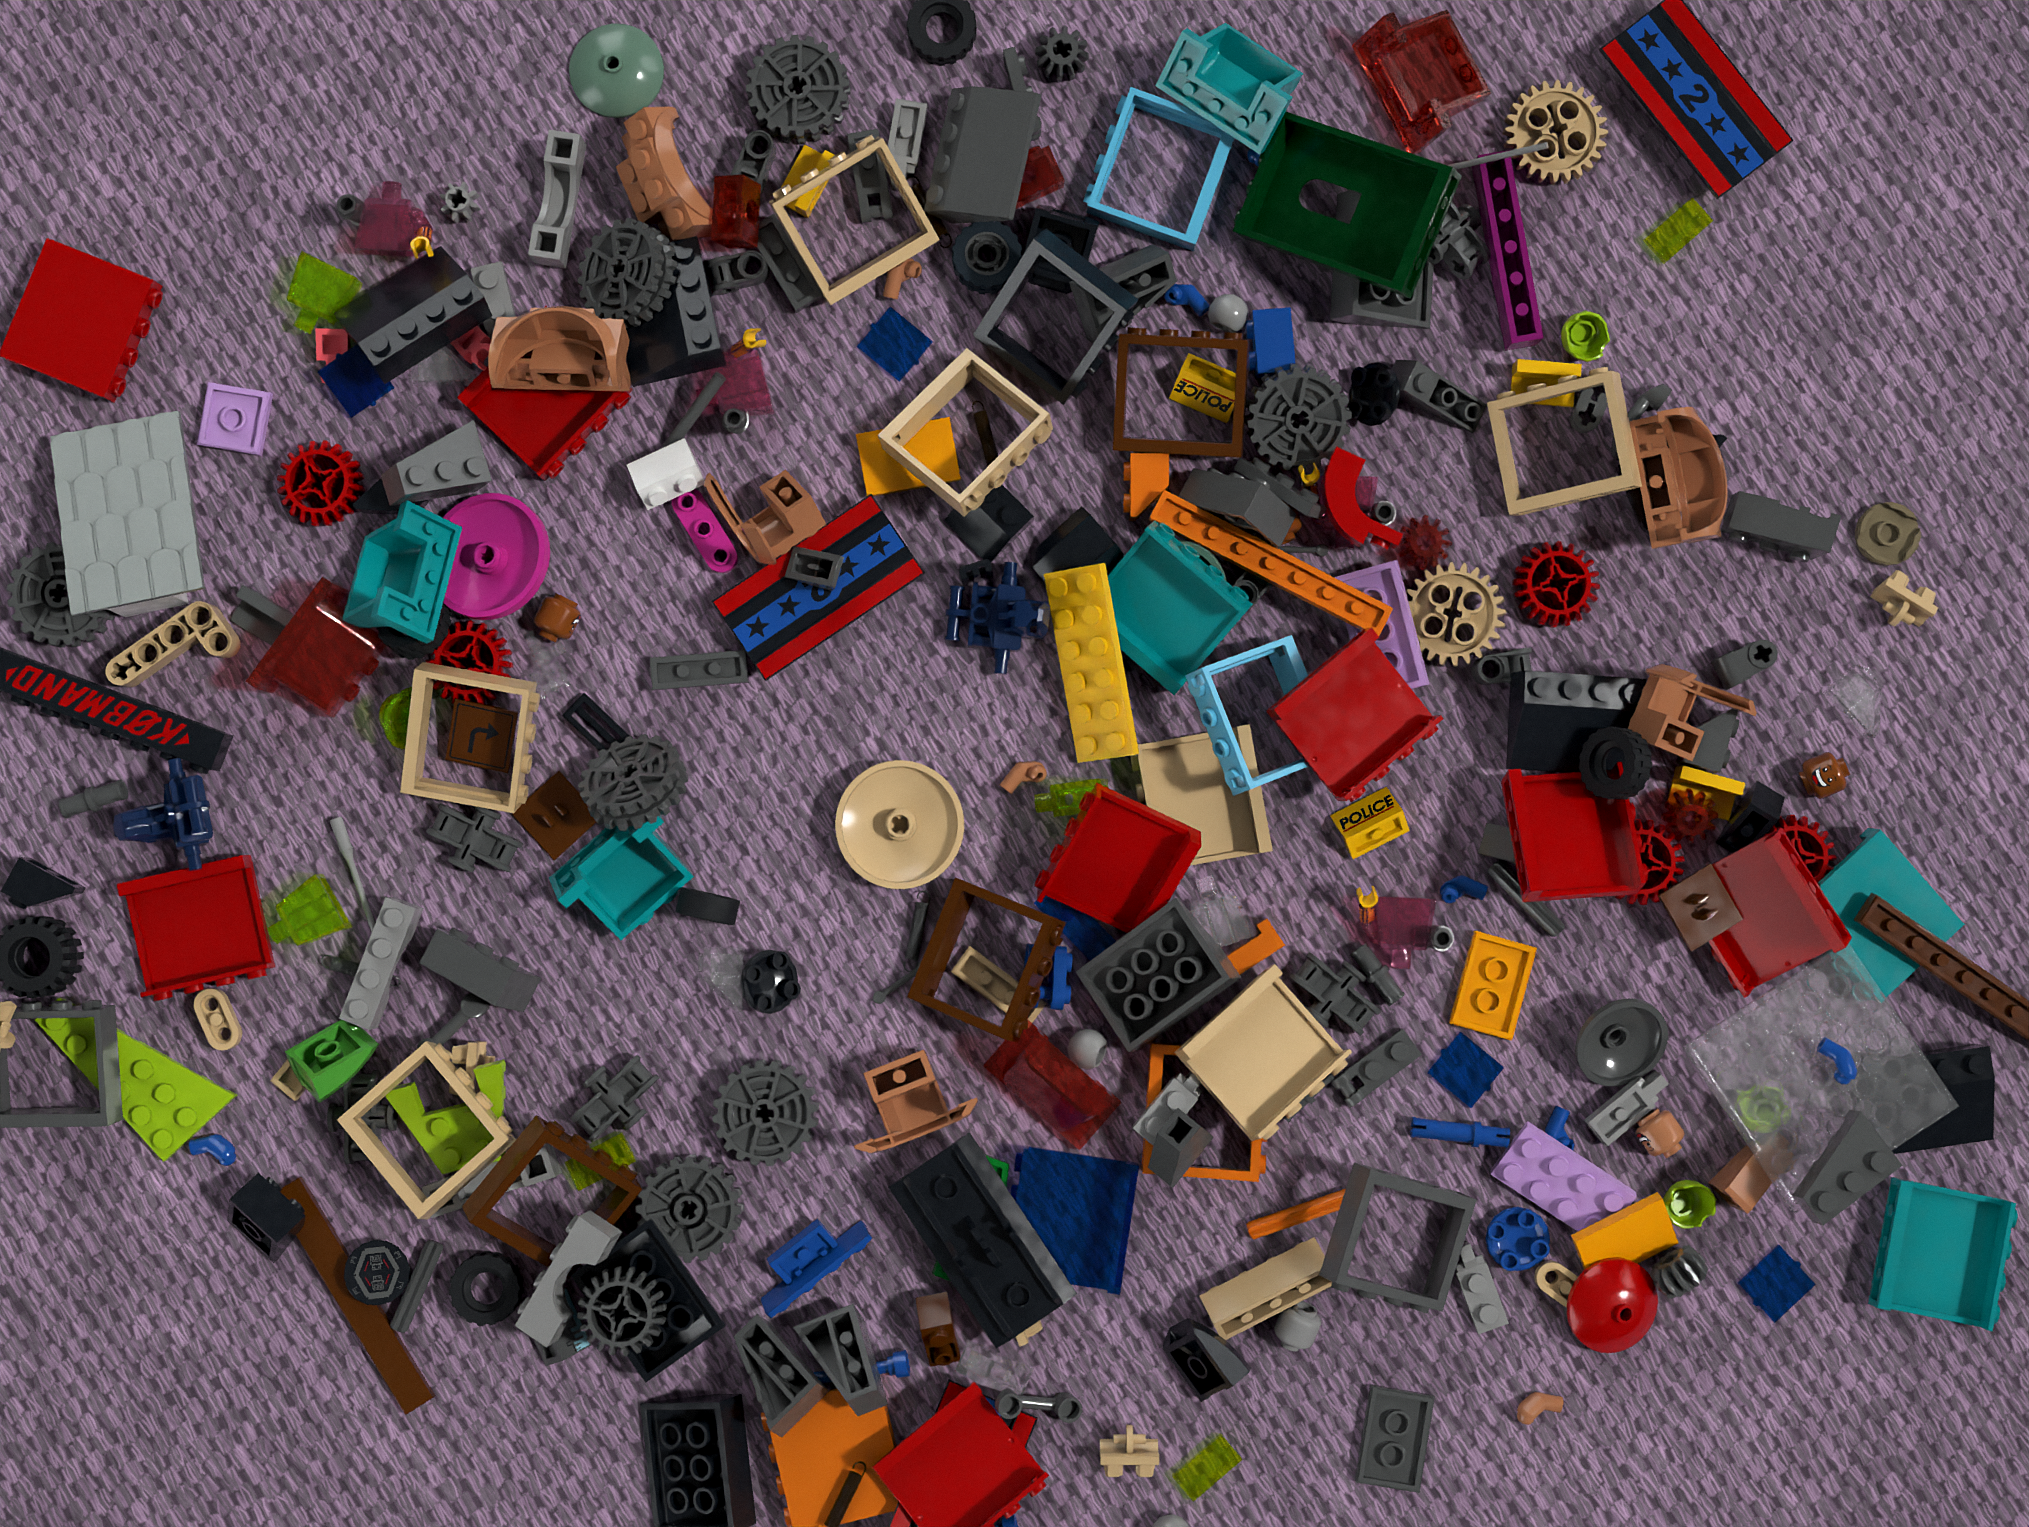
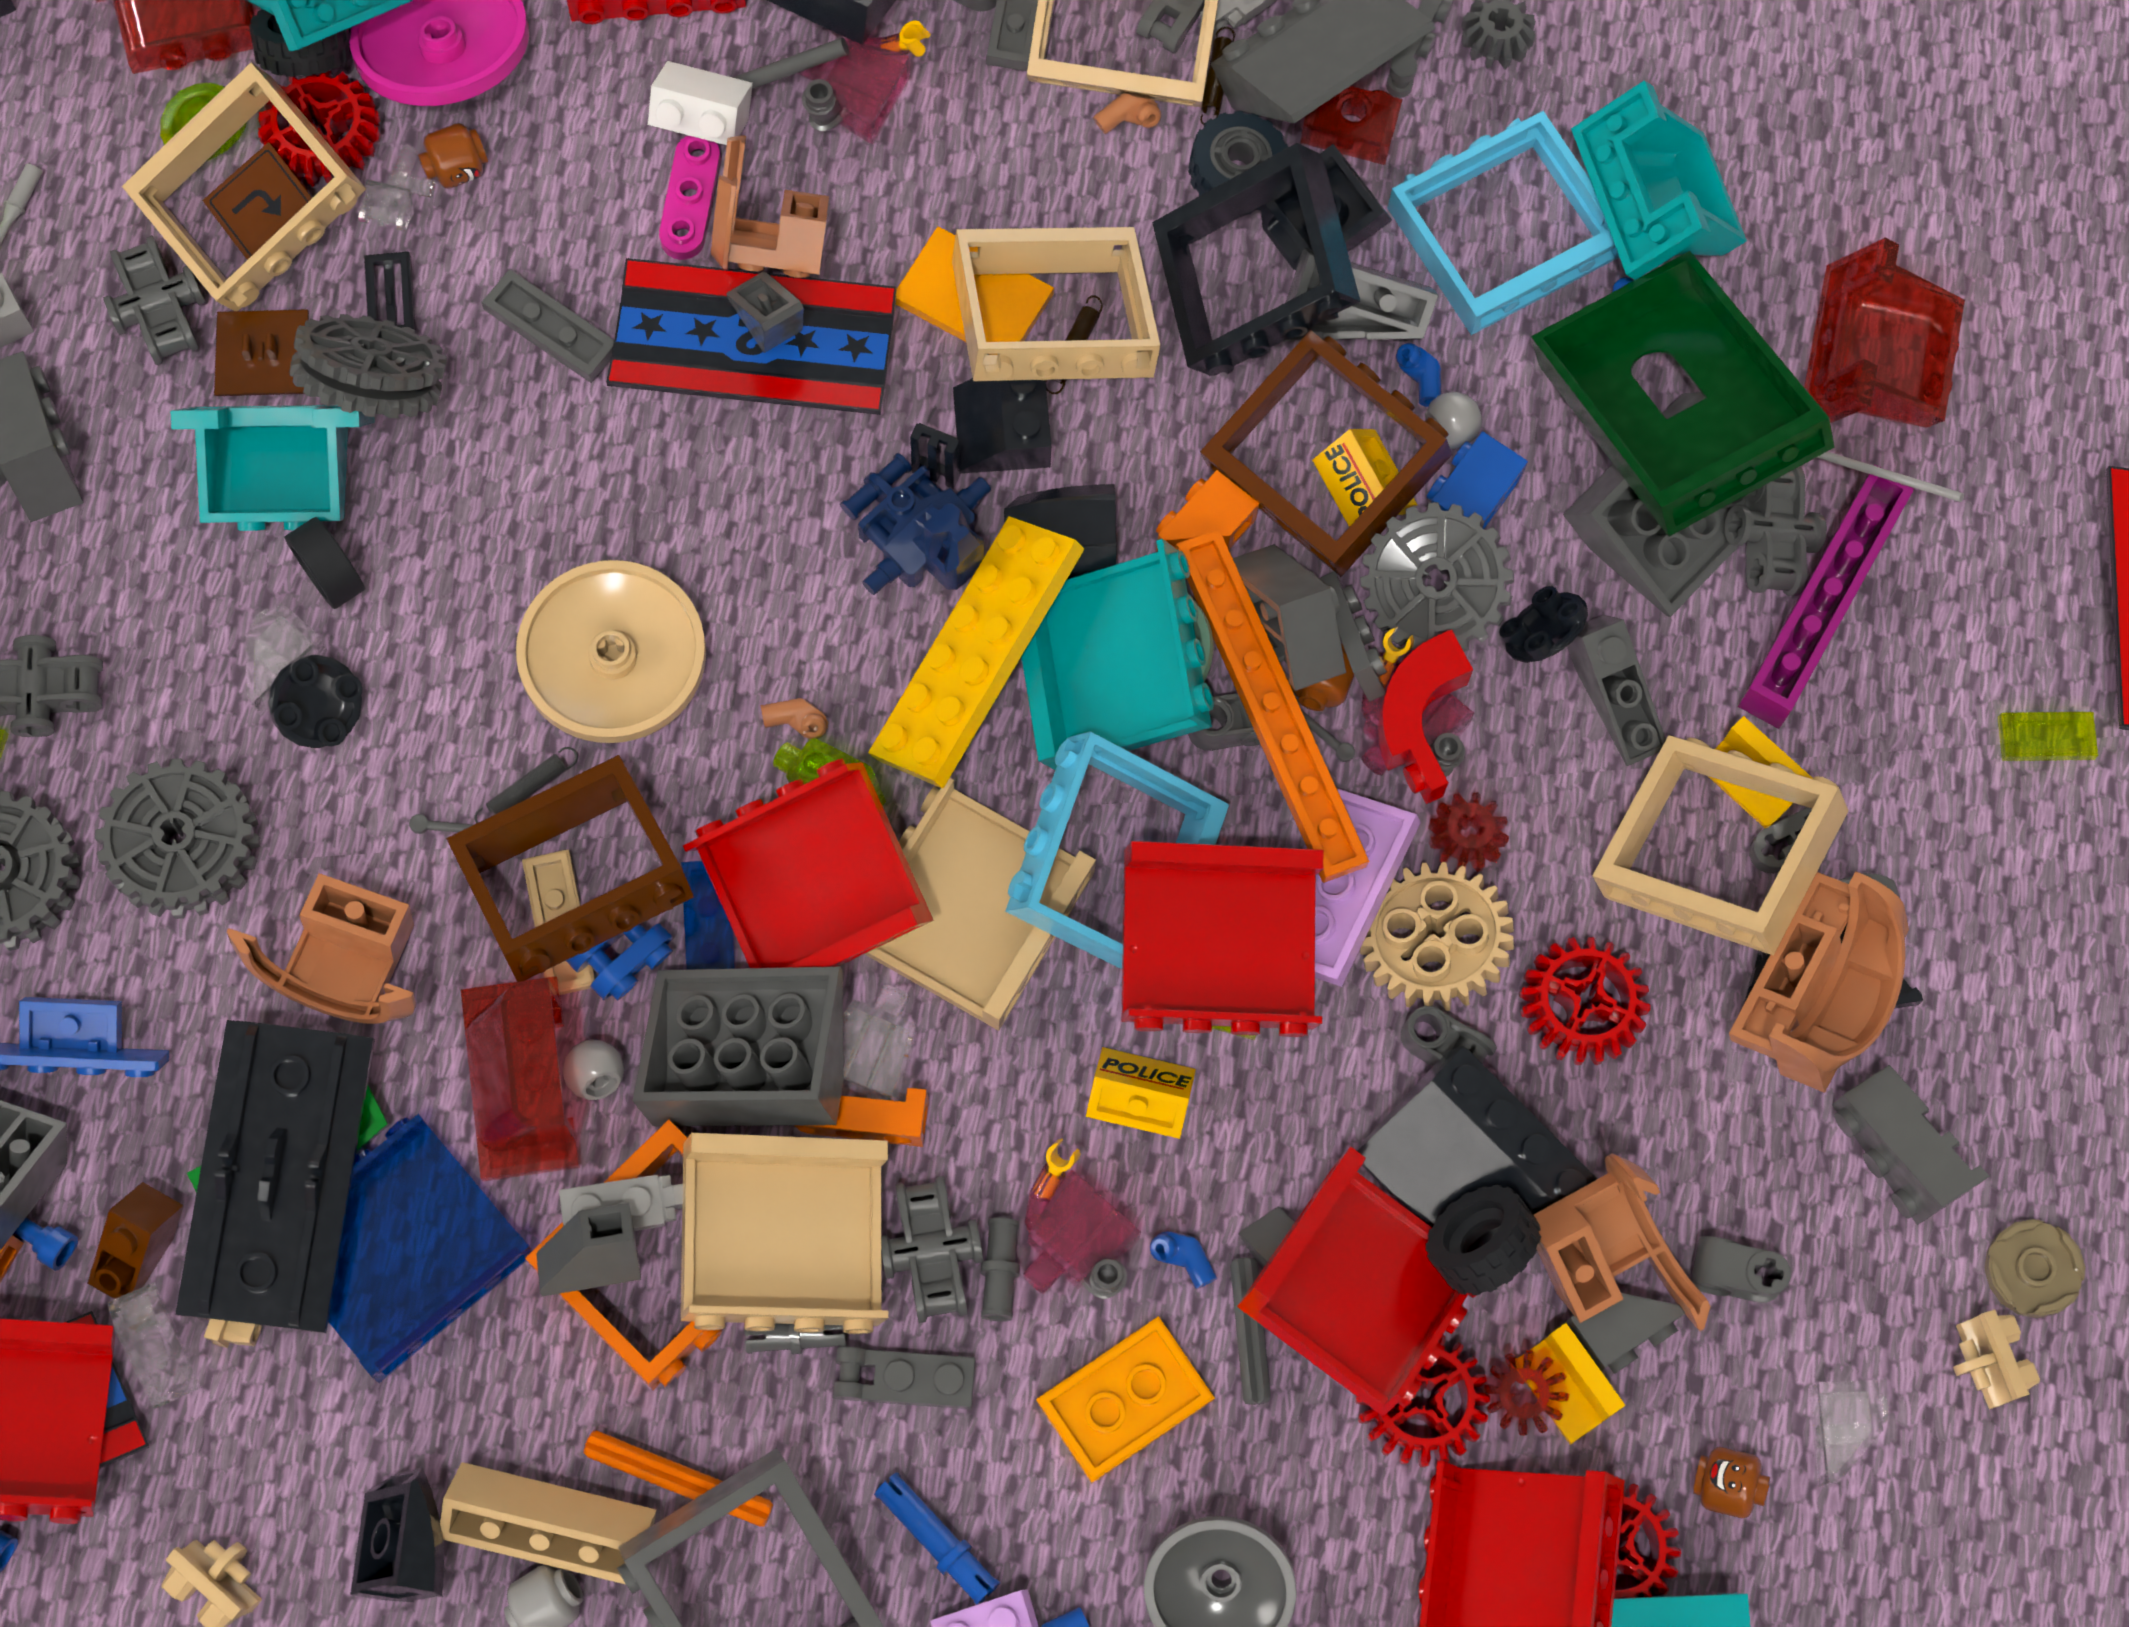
camera: 35 degrees right, 15 degrees down
(894, 344) = (1062, 175): clear blue piece -> none
(1063, 1404) = (129, 1394): dark grey bar -> none
(1465, 1069) = (1008, 1473): clear blue piece -> none
(1583, 127) = (2025, 539): tan gear -> none
(1585, 336) = (1845, 755): lime hair -> none
(1700, 907) = (1449, 1507): reddish brown piece -> none
(1751, 818) = (1619, 1450): black slope -> none

